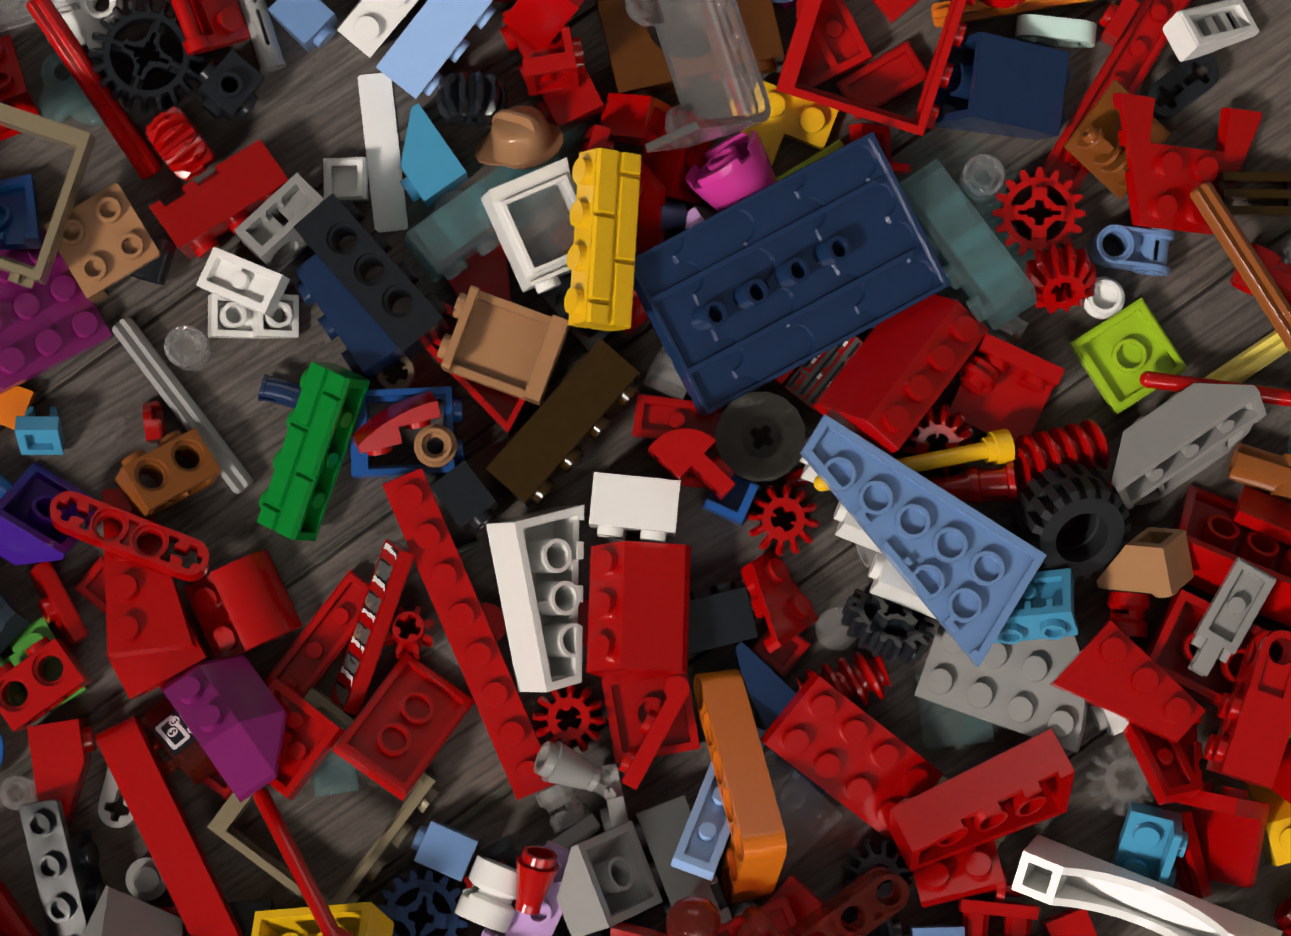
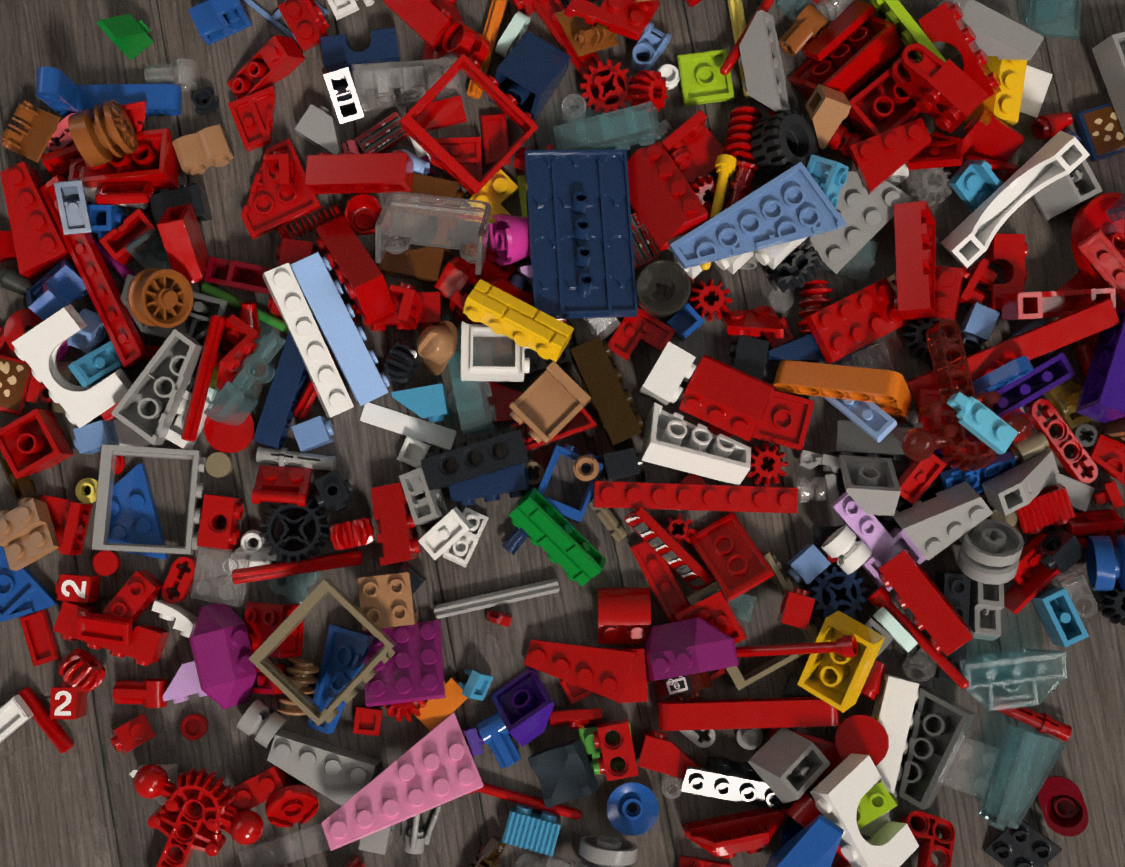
camera: 60 degrees left, 0 degrees up
(132, 530) = (561, 663): red beam -> none
(172, 480) = (537, 622): dark orange brick -> none
(192, 353) = (470, 579): clear wheel -> none
(367, 856) = (796, 608): none -> red brick
(373, 524) = (609, 522): none -> dark tan axle
(383, 430) = (564, 492): red slope -> none
(534, 877) = (849, 519): red cone -> none
(565, 767) = (793, 478): light grey cone -> none
(655, 728) = (796, 419): red plate -> none
(686, 452) = (656, 331): red brick -> none
(1229, 615) = (875, 82): light grey hinge -> none

